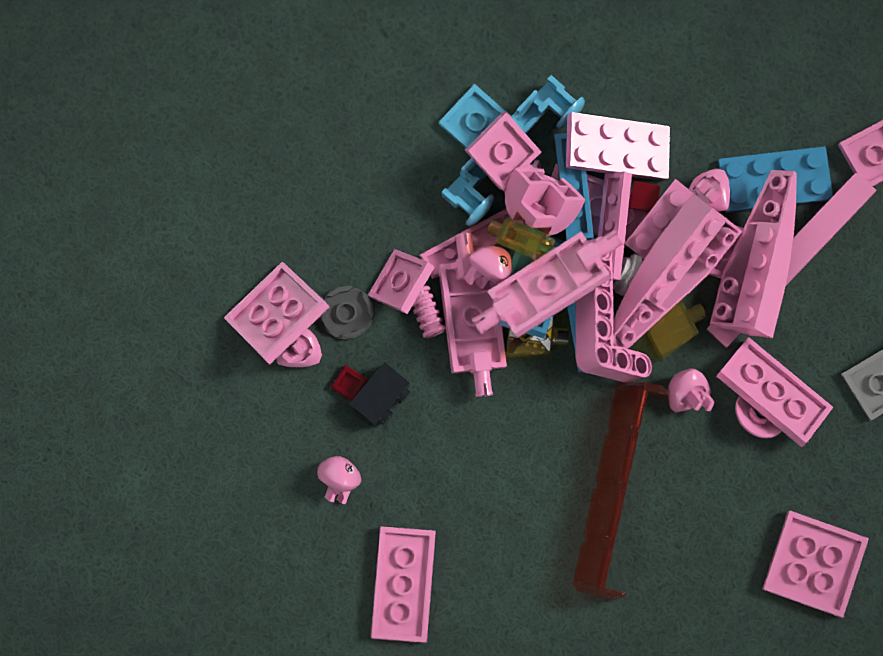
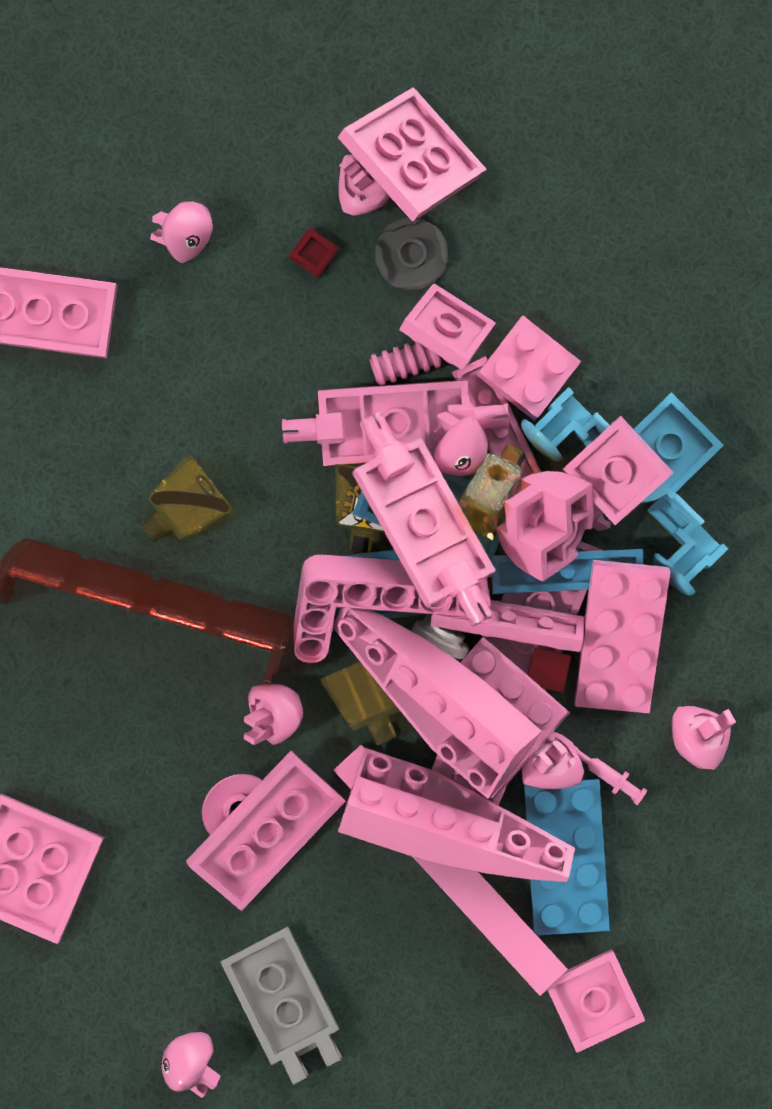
camera: 90 degrees right, 5 degrees up
(380, 395) = (293, 292): black brick -> none
(426, 223) = (528, 368): none -> bright pink plate
(540, 464) = (186, 503): none -> clear yellow torso
(683, 88) = (701, 735): none -> bright pink piece
(718, 147) = (613, 778): none -> bright pink piece

